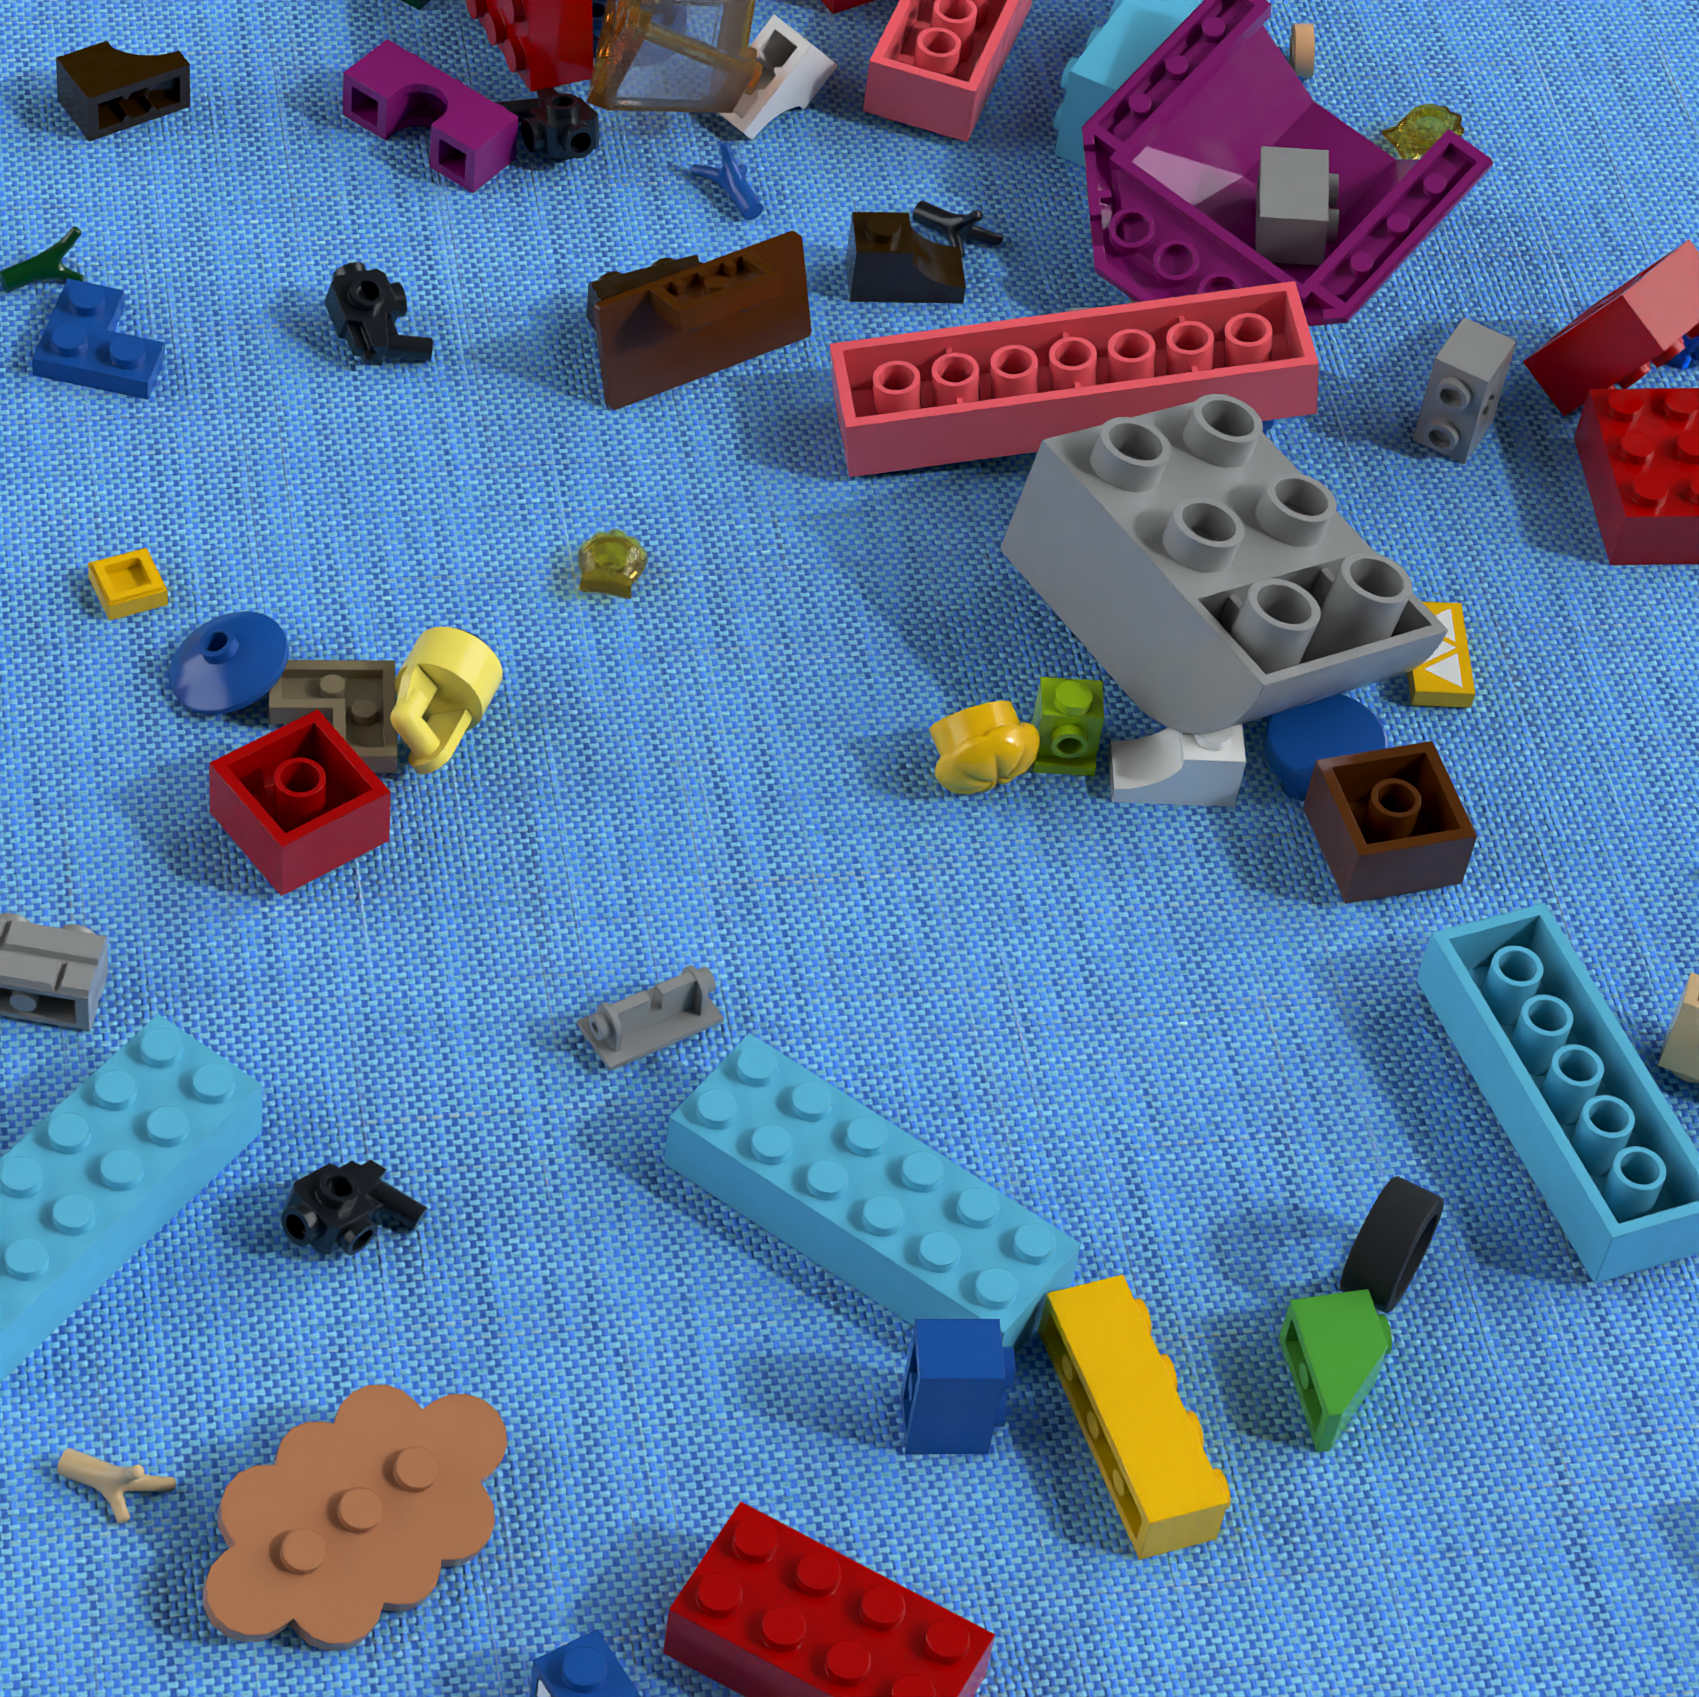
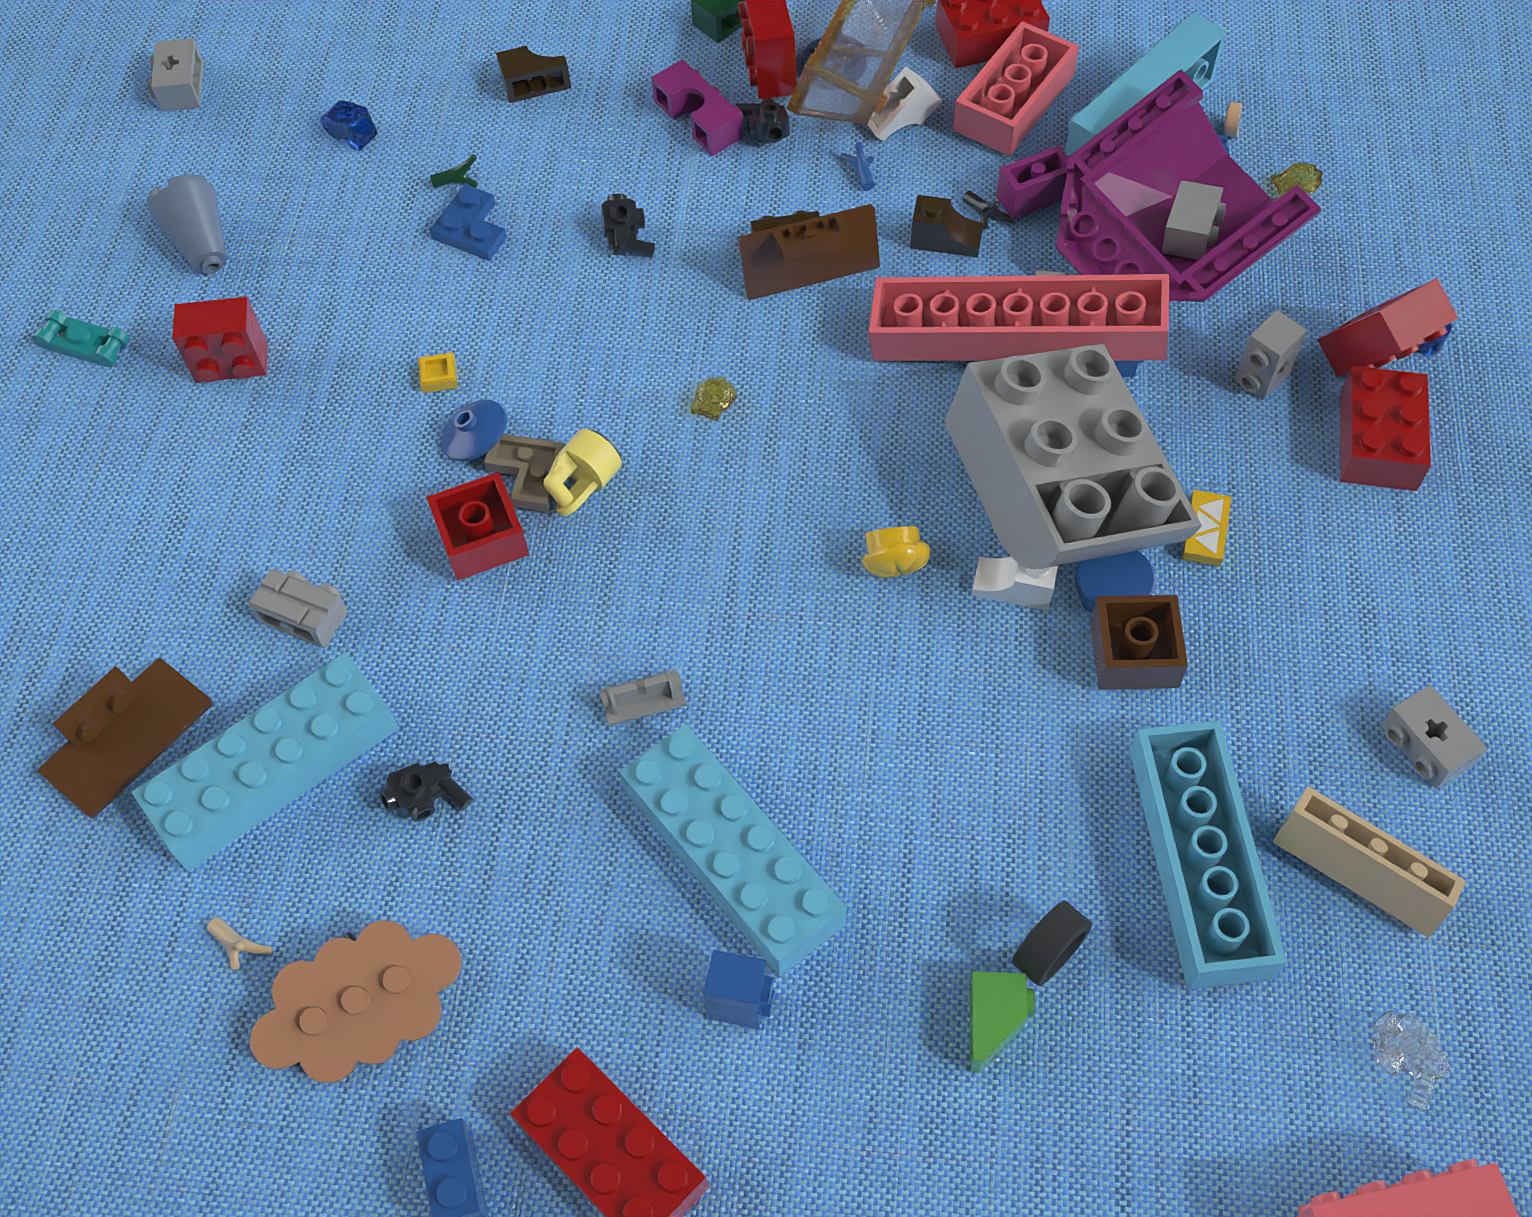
camera: 25 degrees right, 10 degrees up
(1027, 175) = (1032, 182): none -> magenta brick
(1069, 725) = (953, 544): lime brick -> none
(1133, 1416) = (852, 1029): yellow brick -> none

